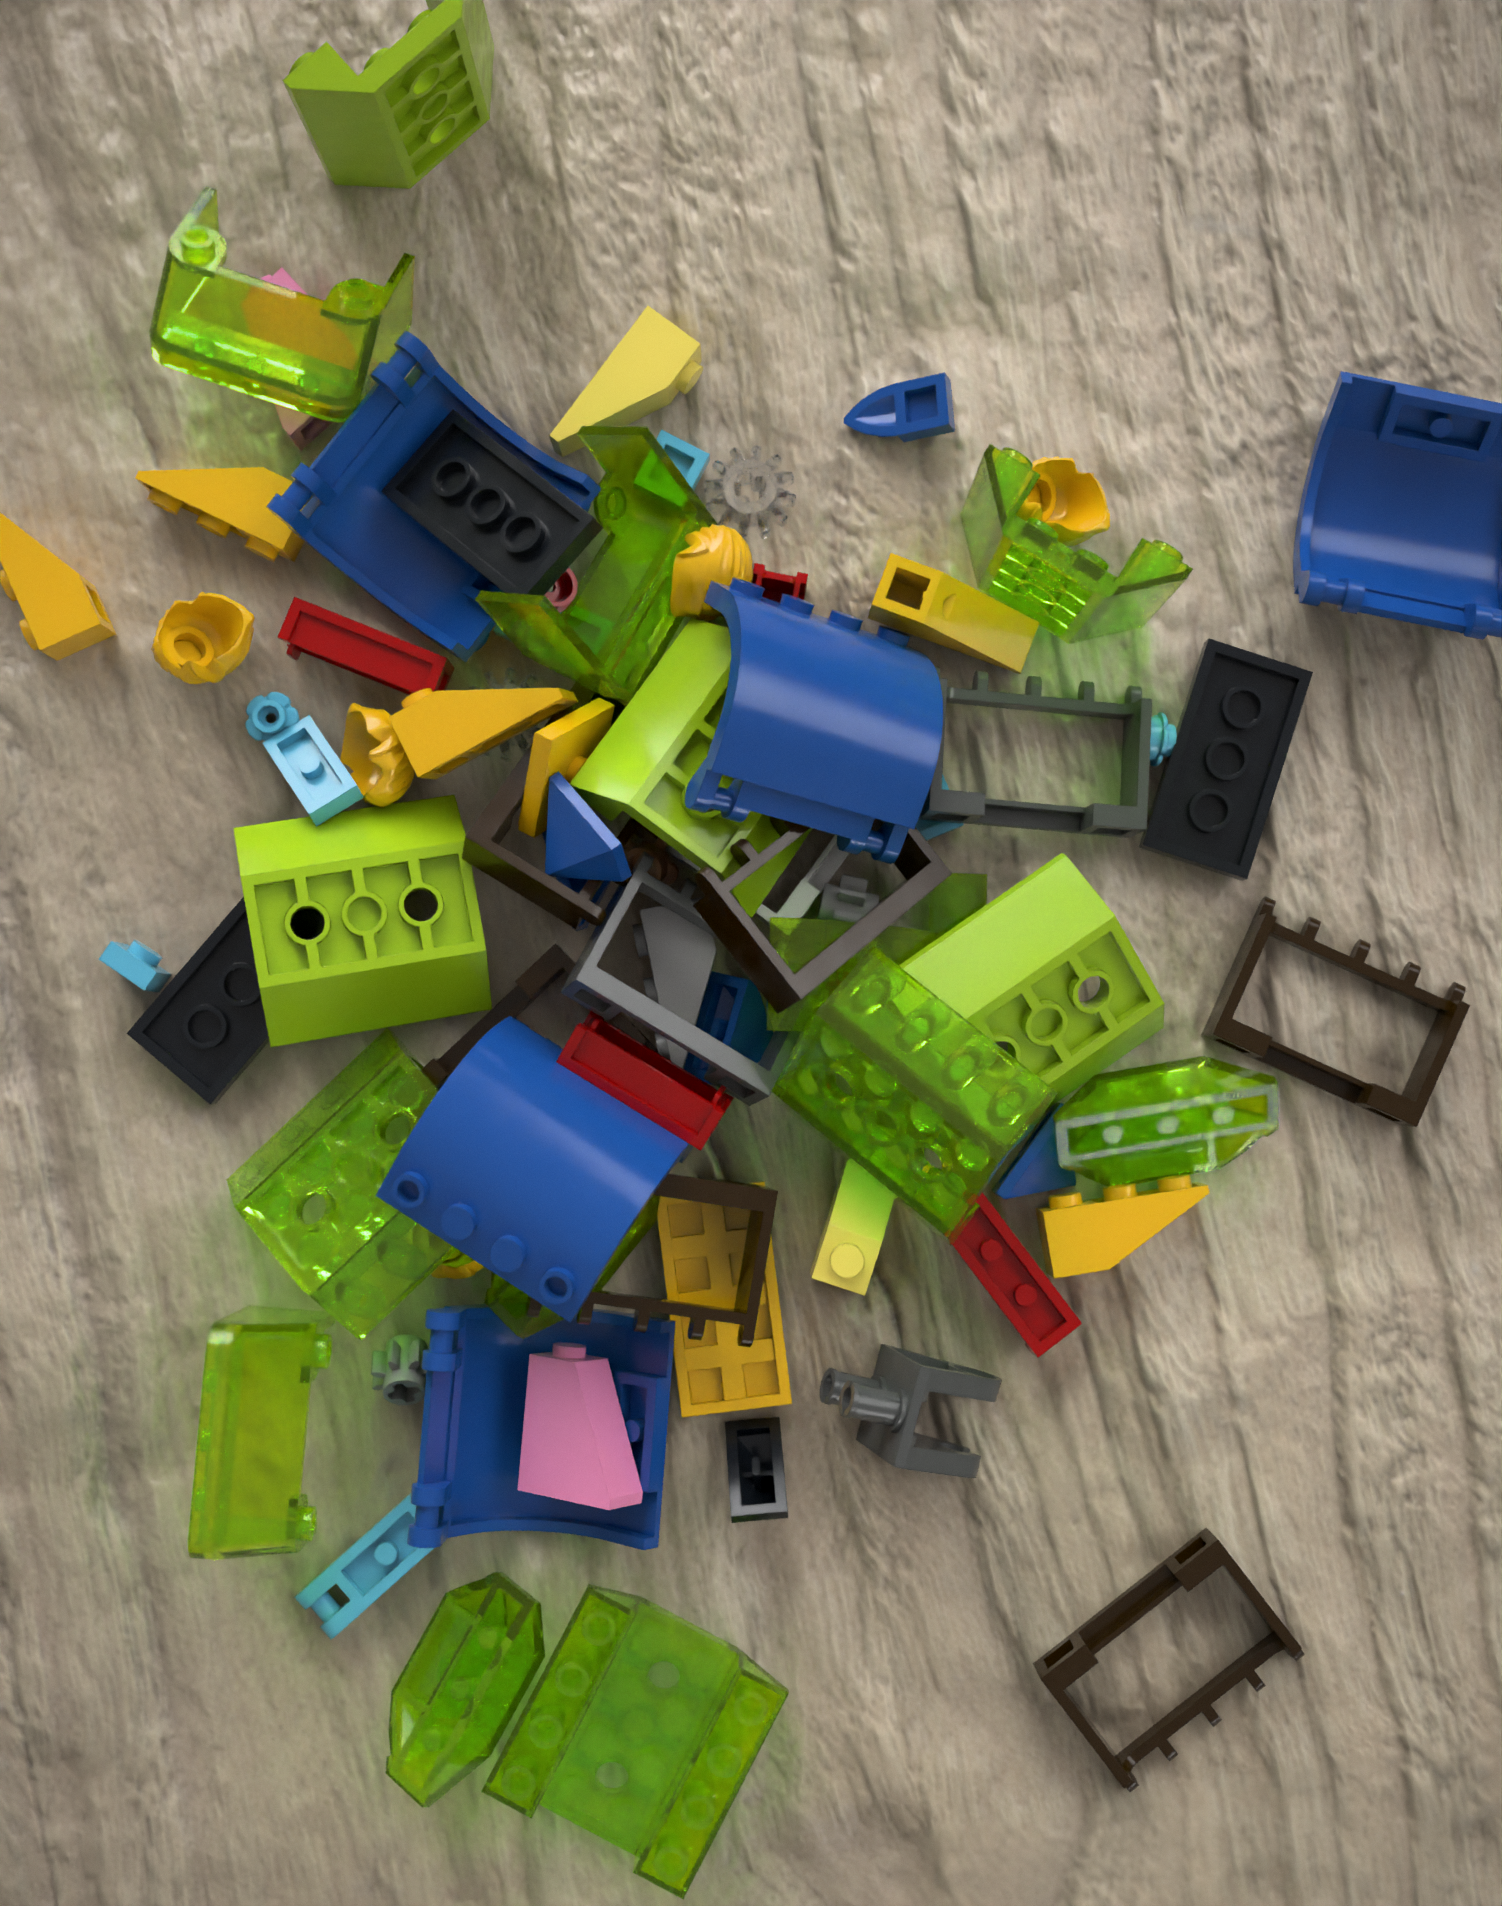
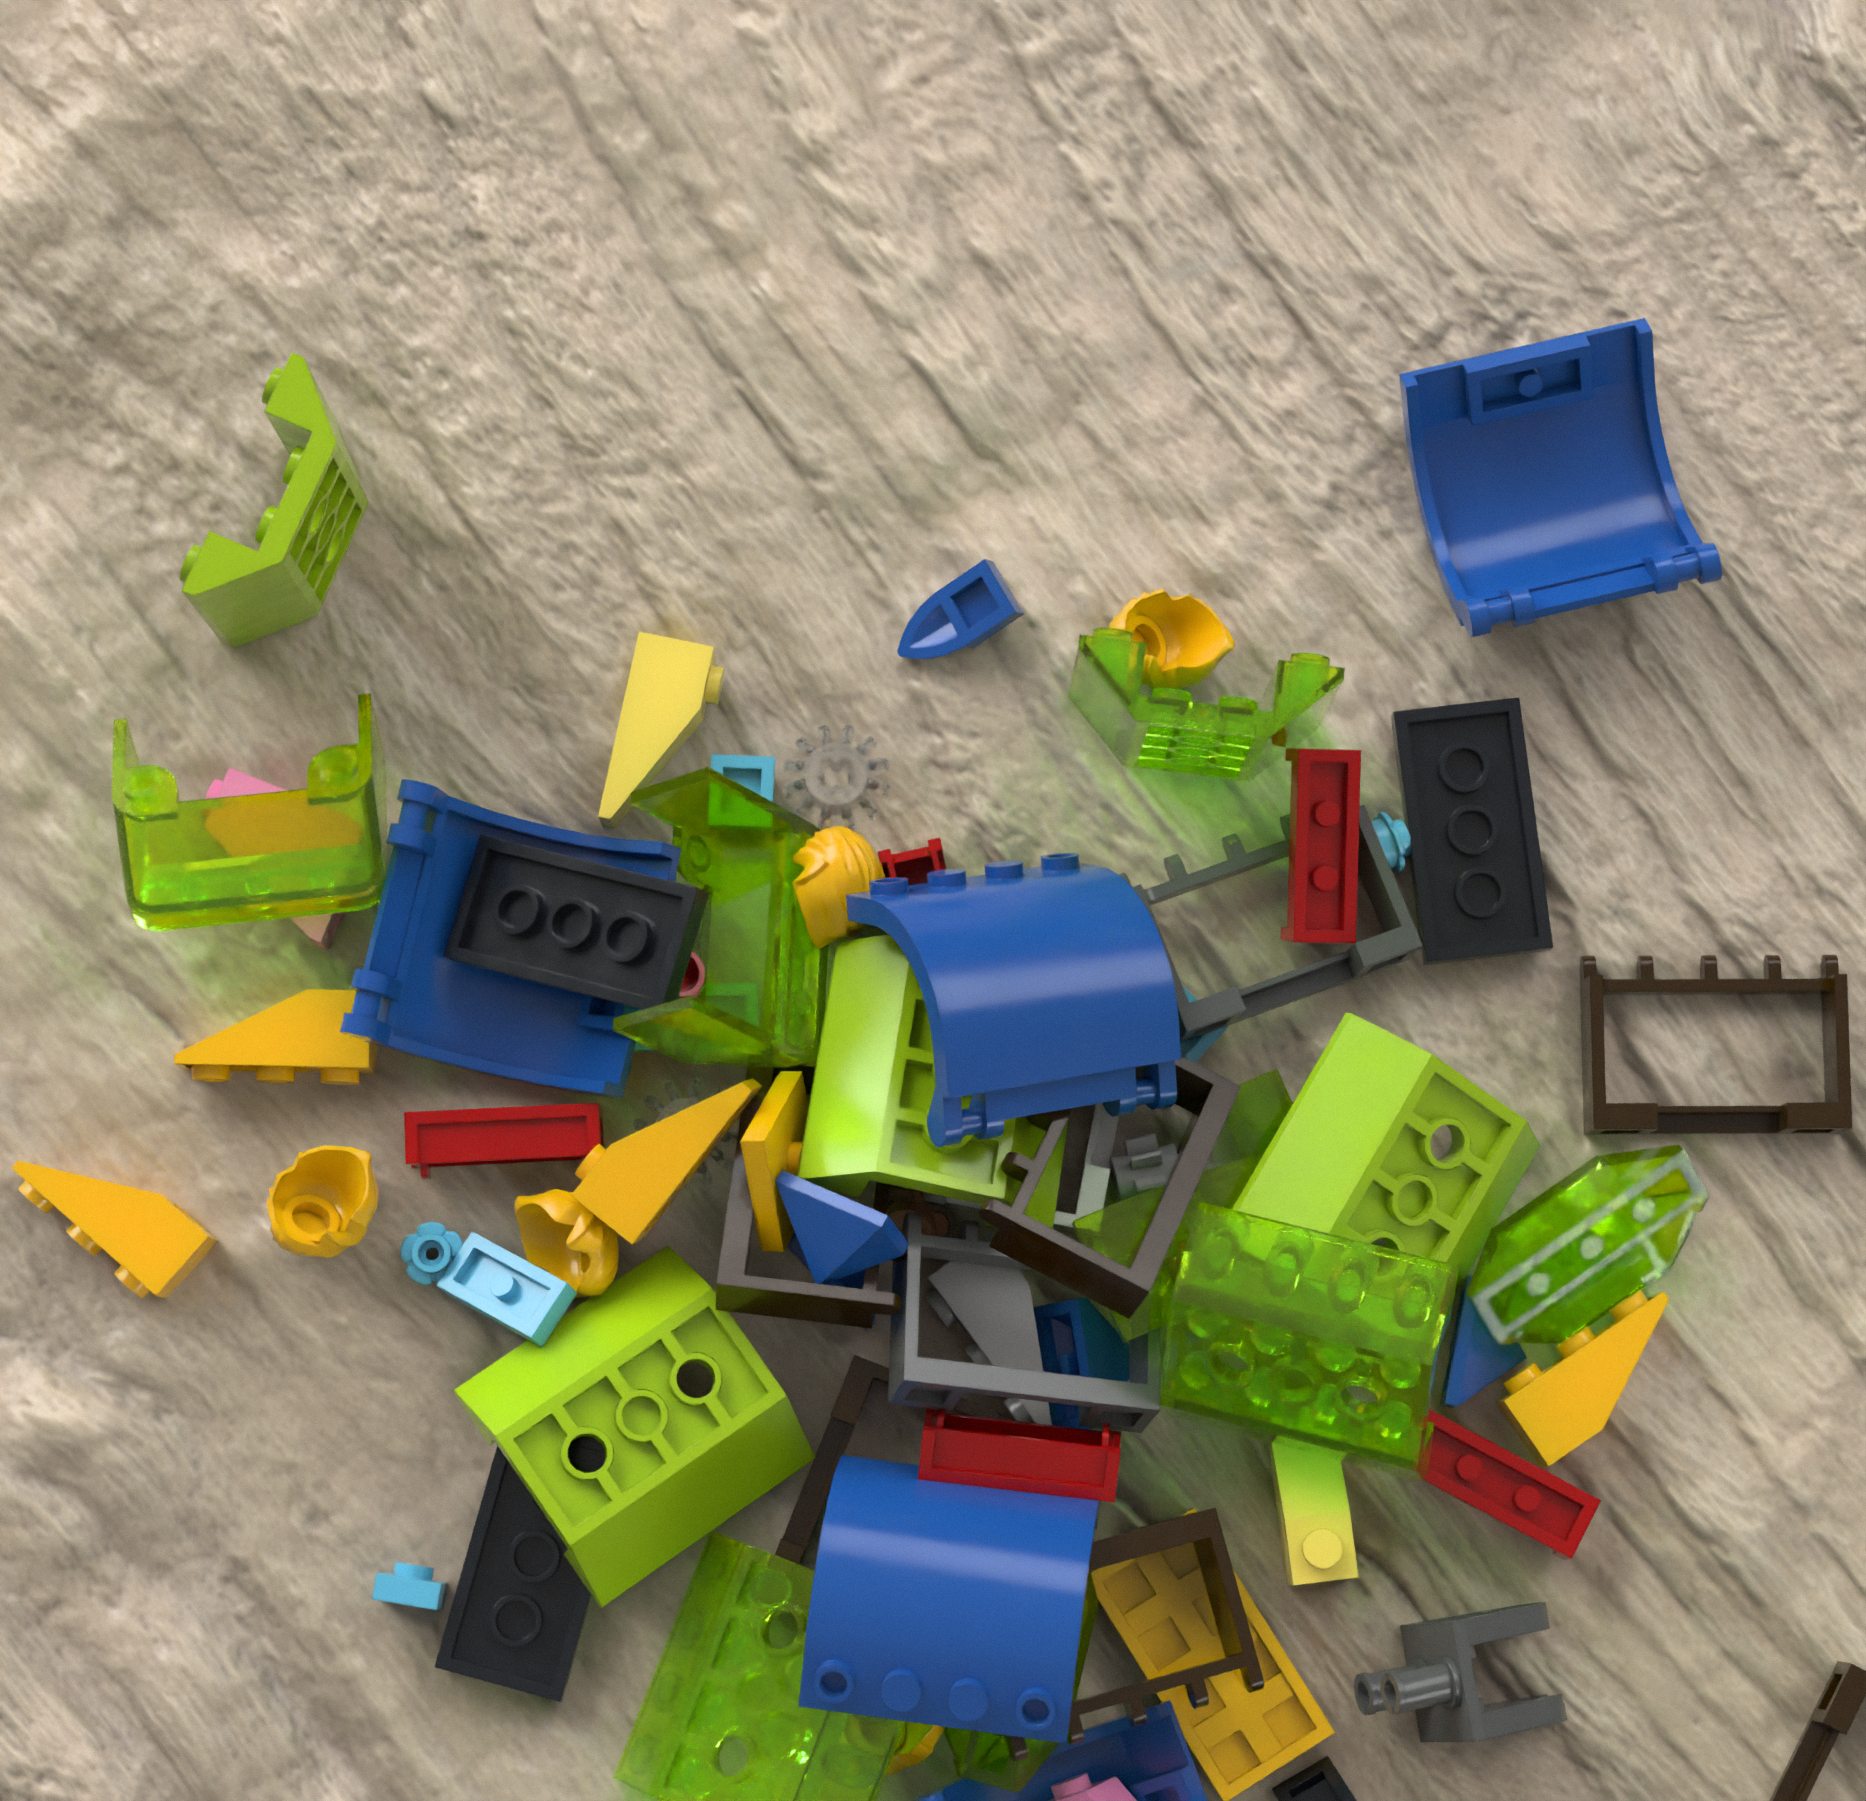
camera: 25 degrees left, 5 degrees down
(951, 614) = (1111, 810): yellow slope -> none
(1105, 715) = (1323, 845): none -> red container

